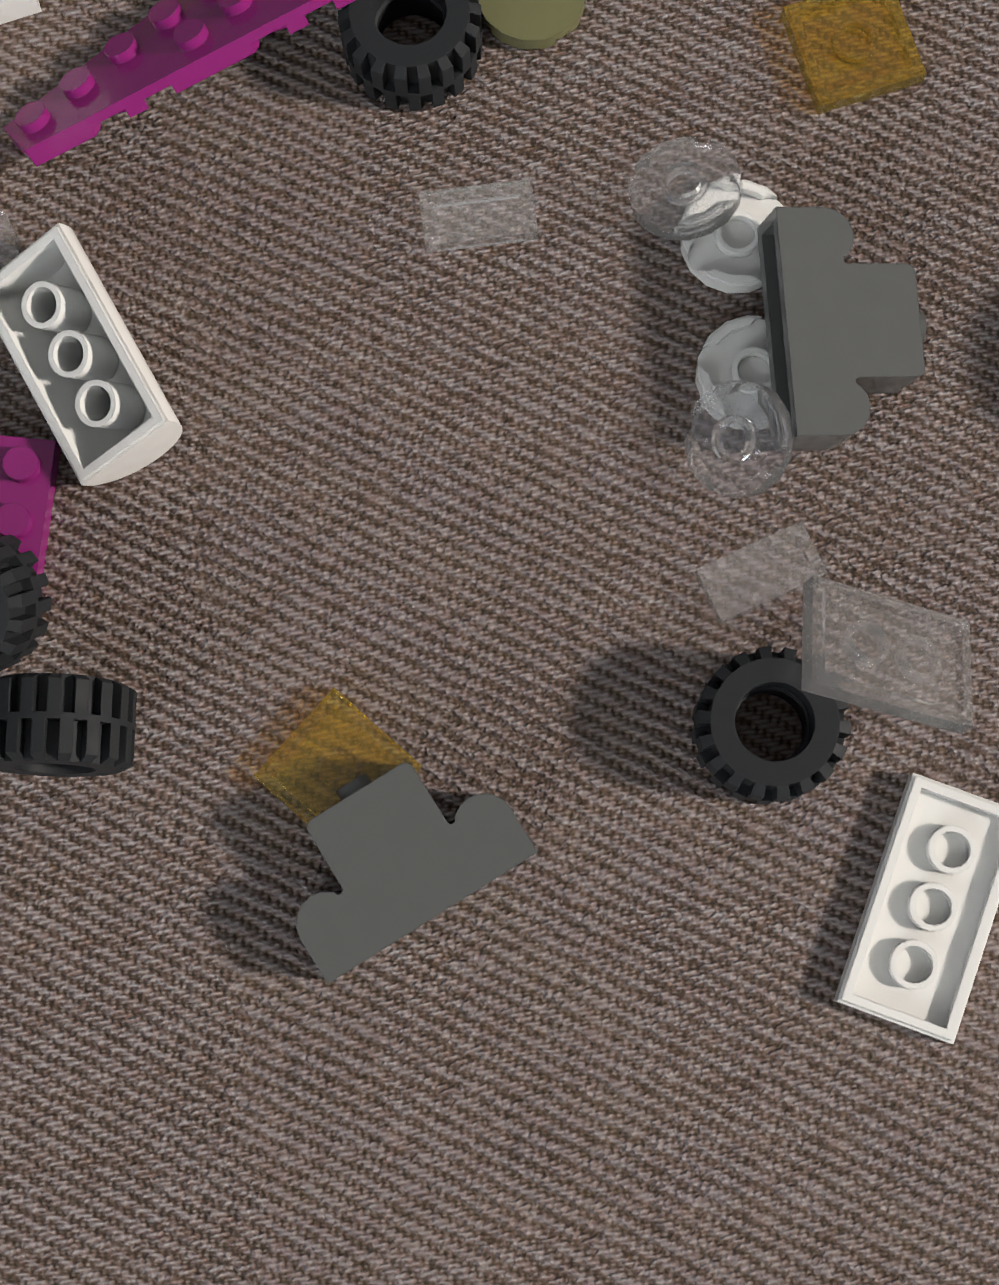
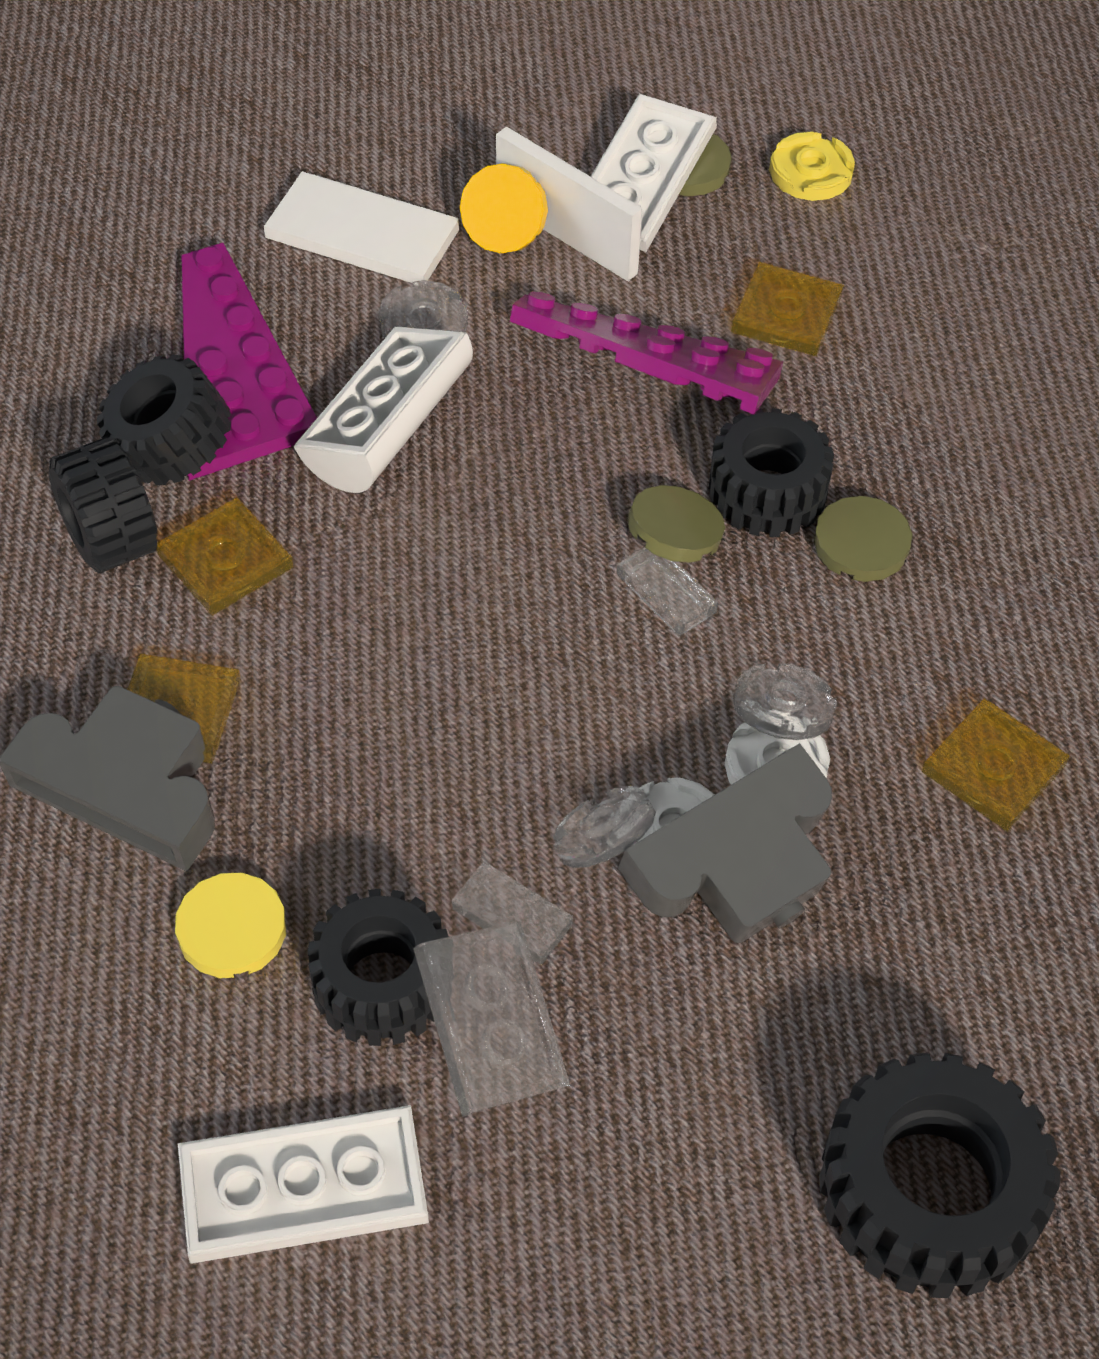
camera: 55 degrees right, 25 degrees down
(169, 627) = (224, 556): none -> clear yellow tile
(412, 159) = (676, 523): none -> olive tile
(627, 840) = (230, 925): none -> light yellow tile

